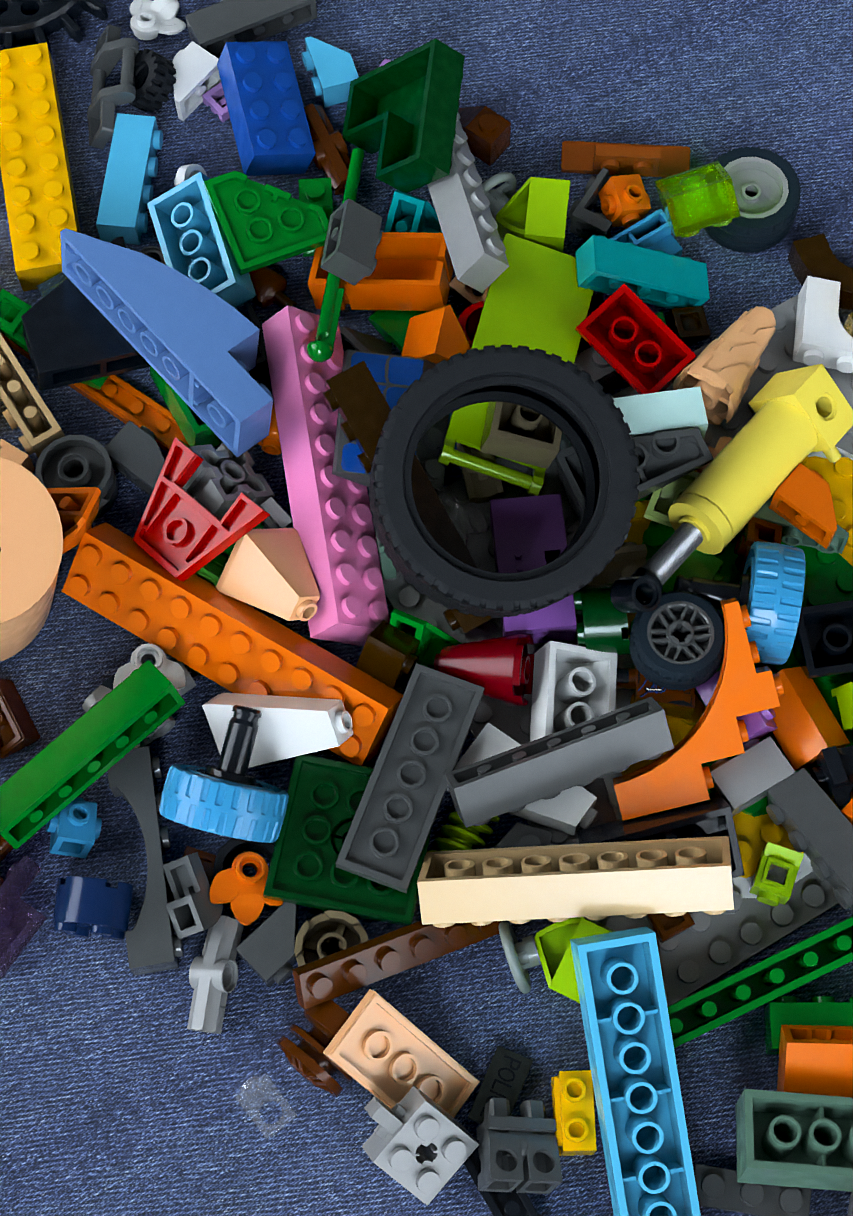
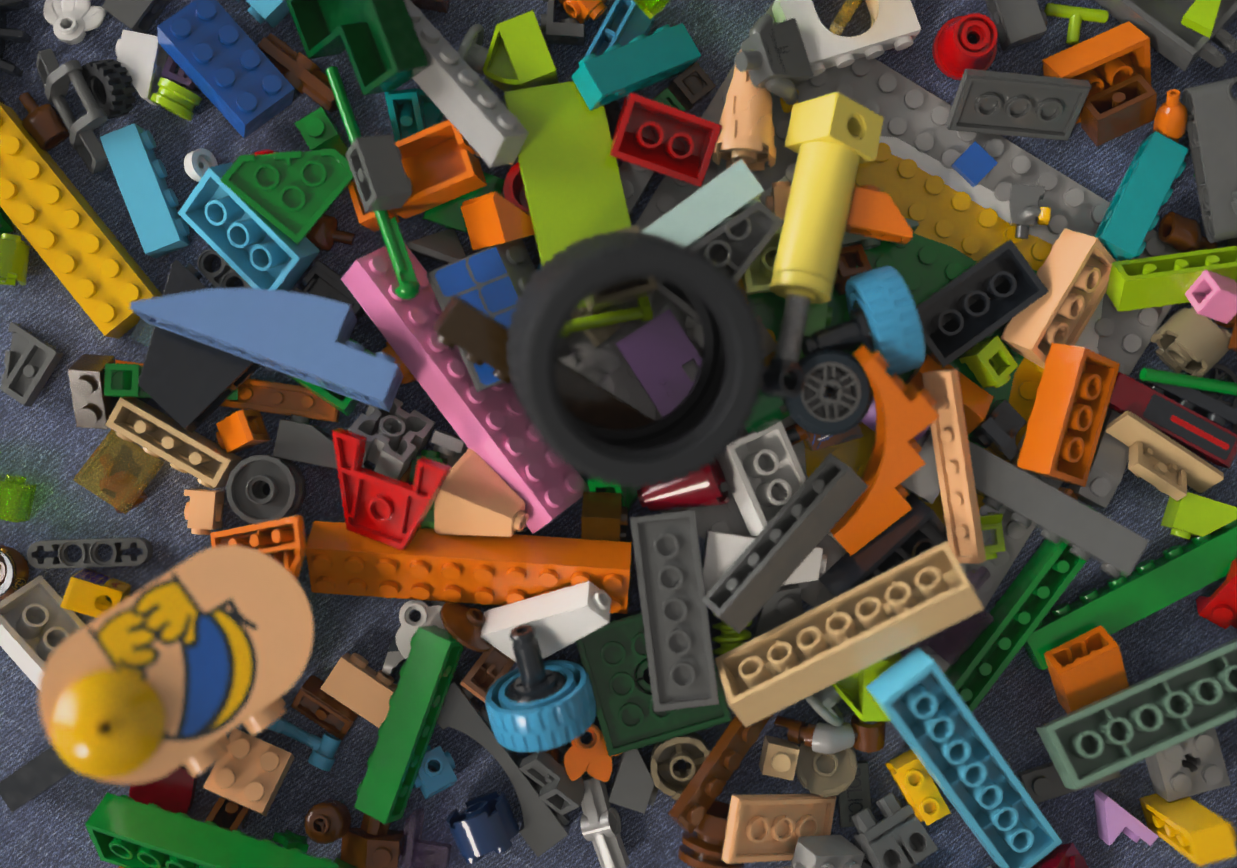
camera: 25 degrees left, 20 degrees up
(48, 703) = (360, 688): none -> light nougat brick
(73, 87) = (43, 123): none -> reddish brown piece
(87, 414) = (241, 431): none -> orange slope
(191, 751) = (486, 671): none -> nougat slope
(193, 691) = (464, 625): none -> reddish brown dish
(203, 117) = (175, 99): none -> lime wheel
(439, 1001) = (778, 758): none -> tan brick
(485, 1037) = (825, 773): none -> dark tan tile
(514, 1007) = (832, 739): none -> piece
(707, 947) = (958, 638): none -> bracket
(773, 777) = (955, 467): none -> light nougat plate
(778, 323) = (775, 59): none -> dark grey torso

